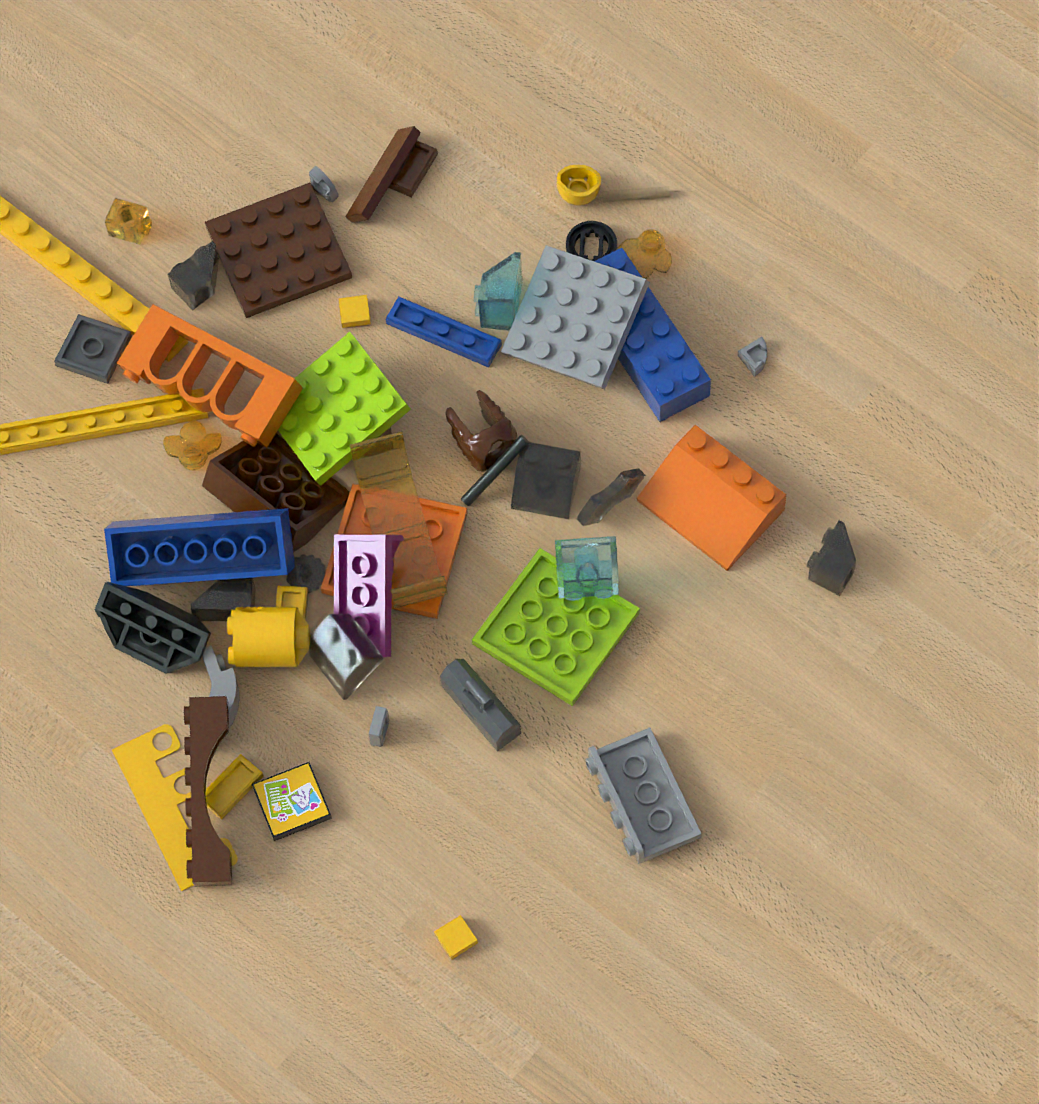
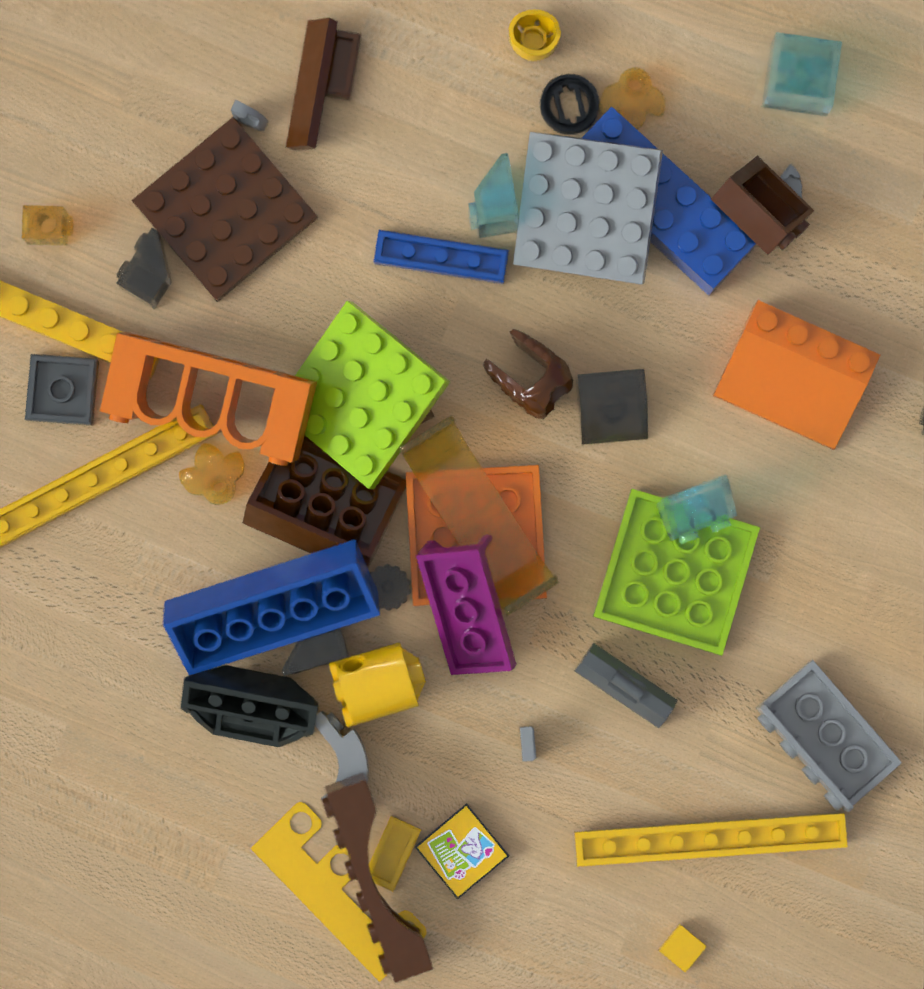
camera: 20 degrees left, 20 degrees up
(292, 597) = (385, 627): yellow tile -> none
(343, 653) = (467, 676): clear smoke slope -> none
(354, 311) = (335, 260): yellow tile -> none
(494, 471) = (556, 414): pearl dark grey bar -> none
(511, 851) = (710, 839): none -> yellow plate
(604, 501) = (689, 407): clear smoke tile -> none
(611, 198) = (596, 27): tan piece -> none
(724, 355) = (763, 206): none -> reddish brown window
(791, 267) = (801, 74): none -> clear light blue brick

